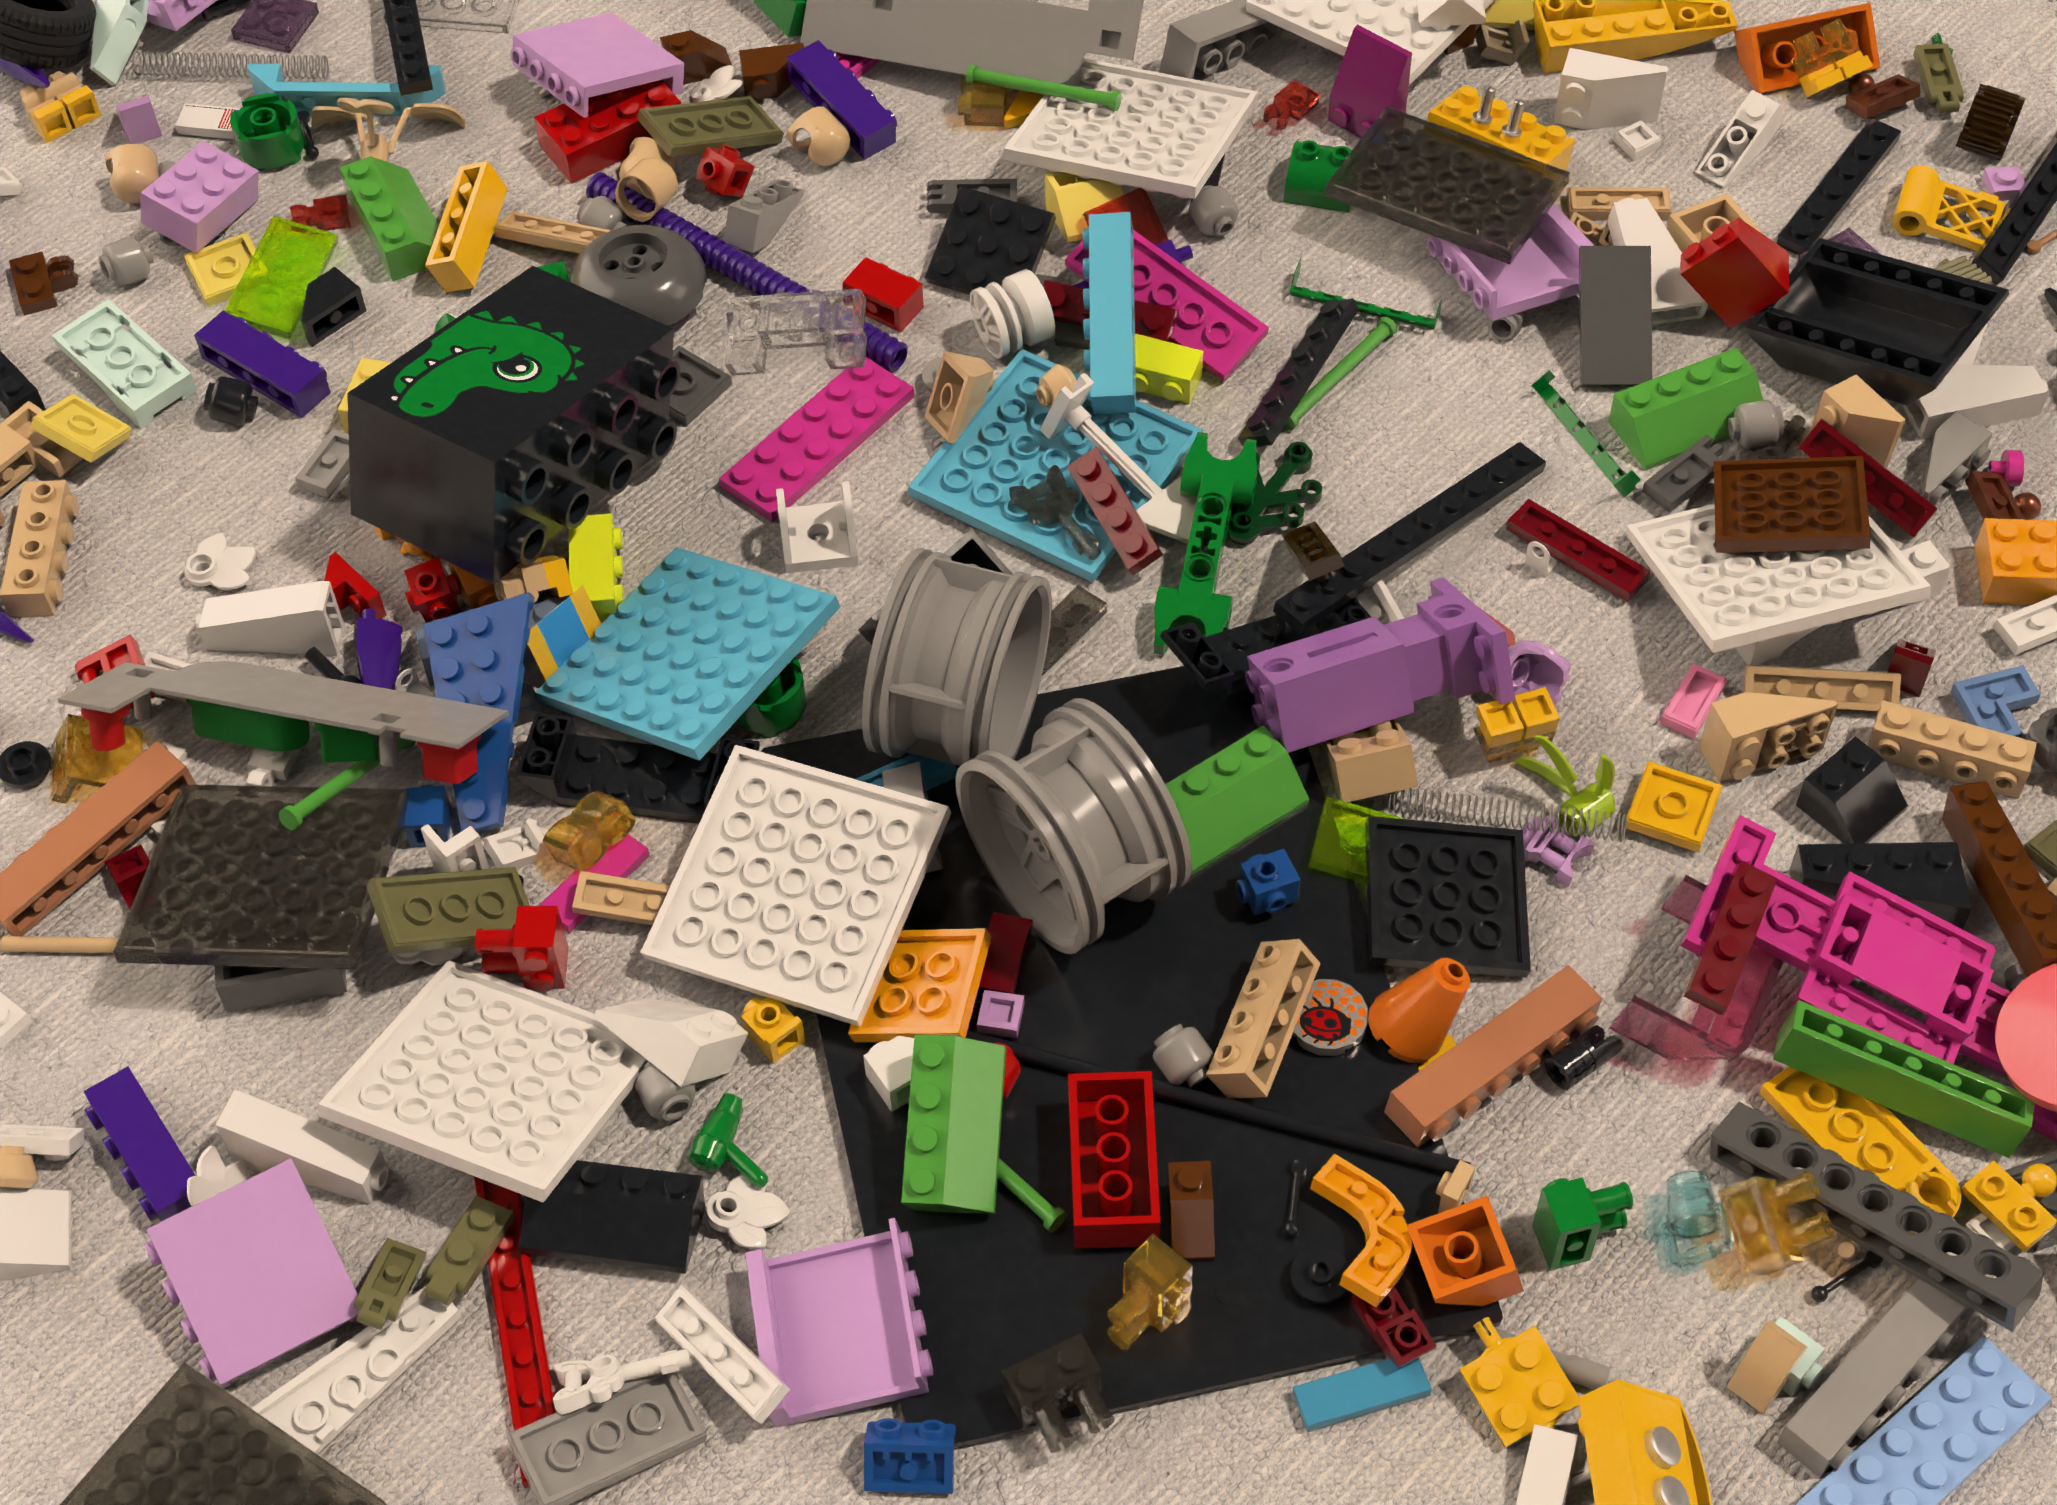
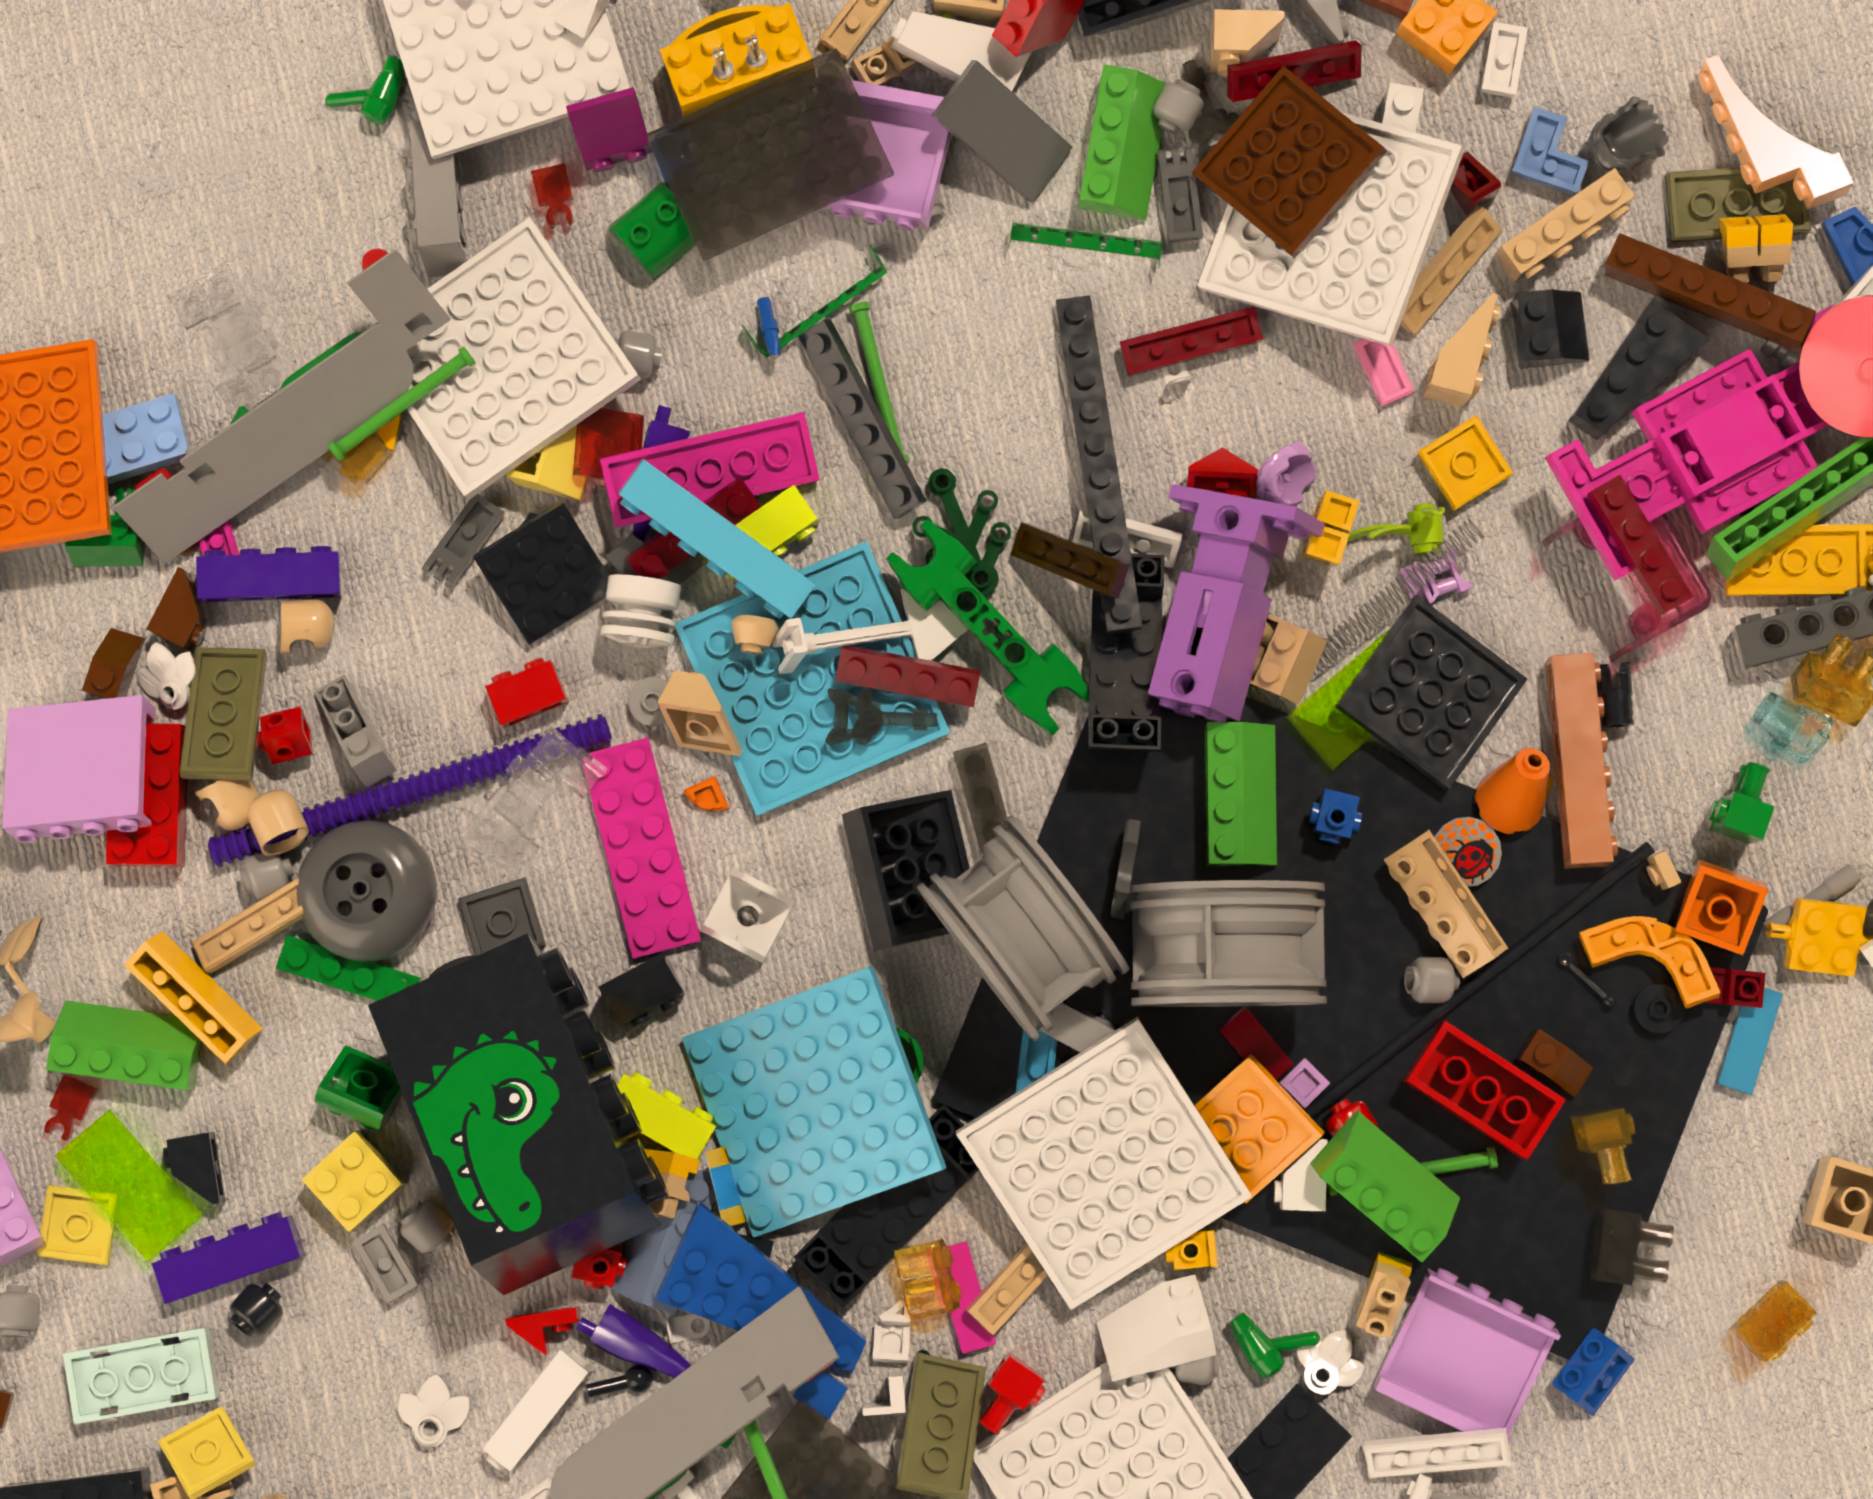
camera: 55 degrees left, 30 degrees up
(696, 487) = (642, 991): none -> black slope
(846, 1201) = (1384, 1295): none -> tan hips
(899, 455) = (707, 795): none -> orange tile
(1316, 277) = (769, 325): none -> blue piece

